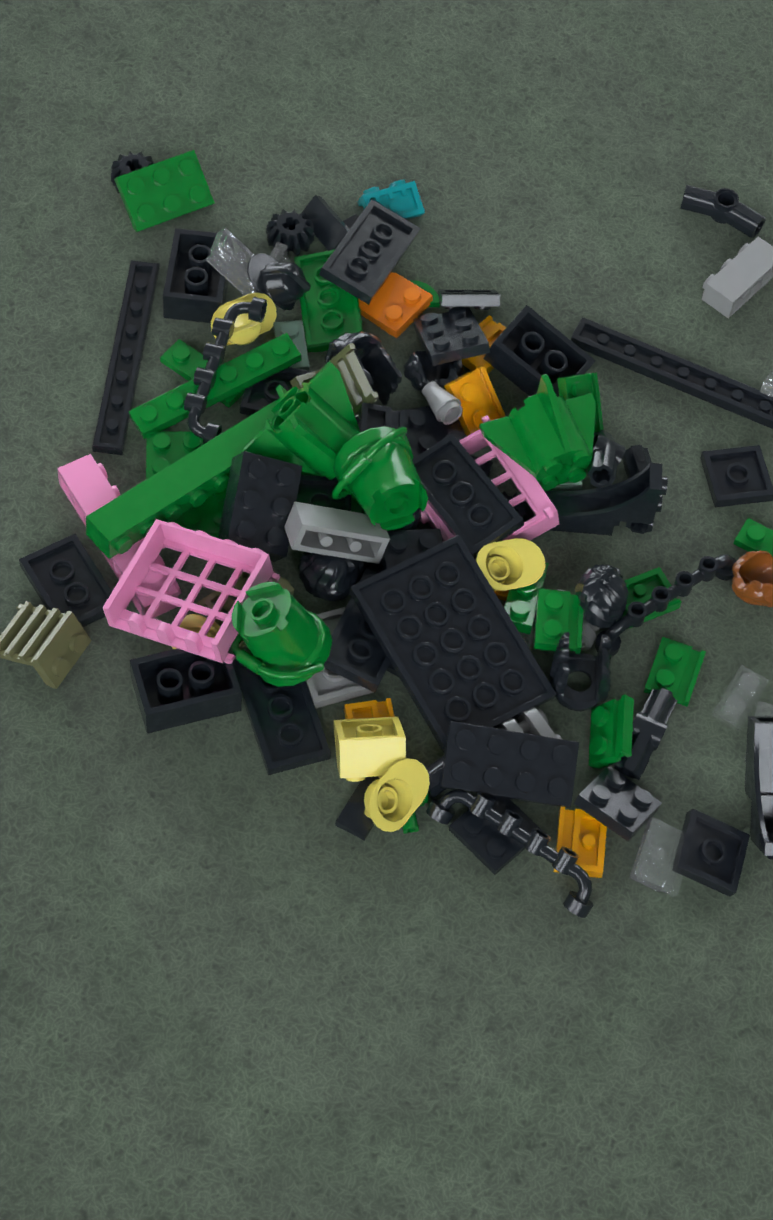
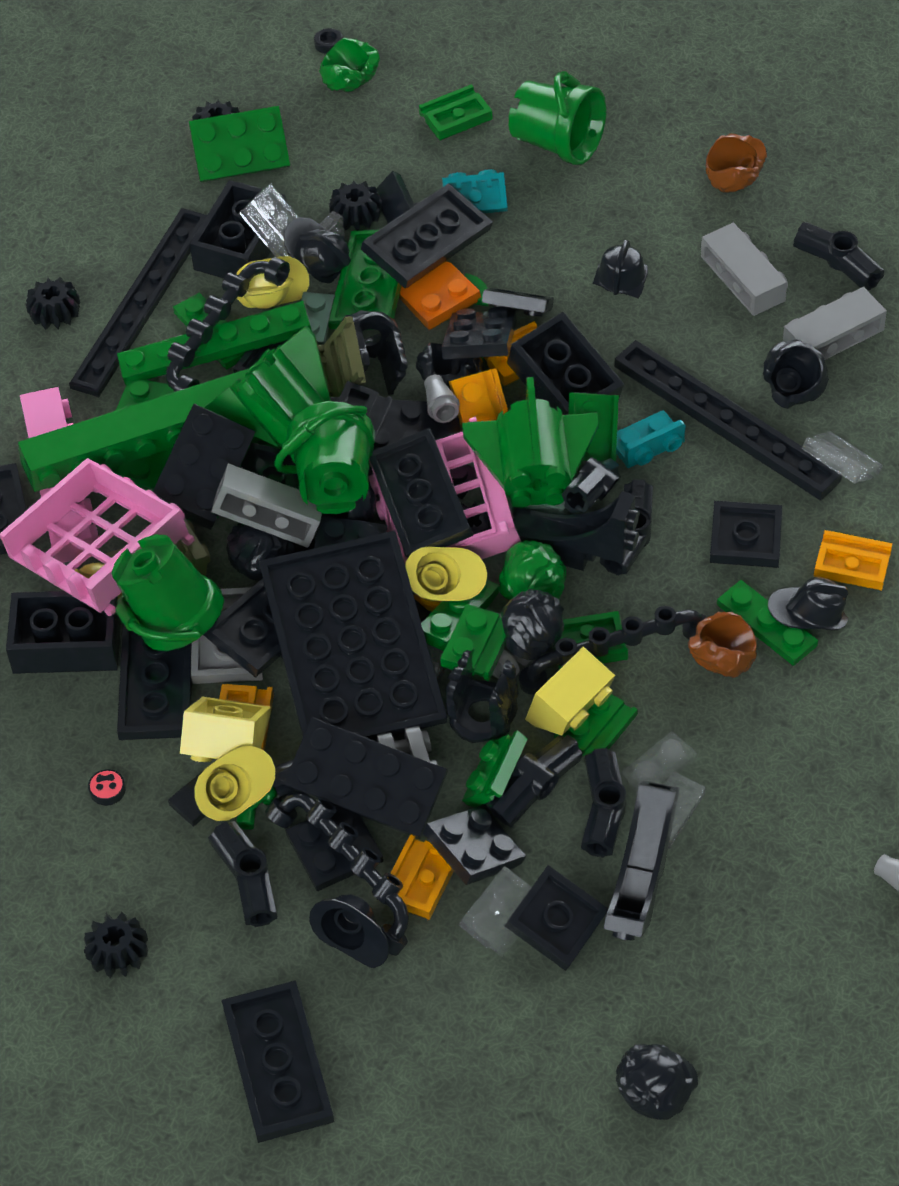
camera: 25 degrees right, 5 degrees down
(48, 372) = (52, 303): none -> black gear
(203, 78) = (326, 39): none -> black tile
(235, 99) = (349, 65): none -> green hair
(275, 821) = (109, 788): none -> tile
(341, 977) = (109, 957): none -> black gear
(344, 129) = (455, 112): none -> green plate
(444, 886) = (254, 887): none -> black piece
(445, 122) = (560, 117): none -> green piece
(522, 1036) = (277, 1061): none -> black plate
(543, 903) = (351, 928): none -> black piece
(544, 255) = (622, 271): none -> black piece
(575, 547) = (532, 567): none -> green hair
(607, 139) = (735, 162): none -> dark orange hair
(624, 404) = (648, 438): none -> teal bracket
(648, 236) = (744, 268): none -> light grey brick
(654, 652) = (570, 693): none -> light yellow slope
(715, 756) = (604, 818): none -> black piece
(729, 324) = (795, 373): none -> black hair

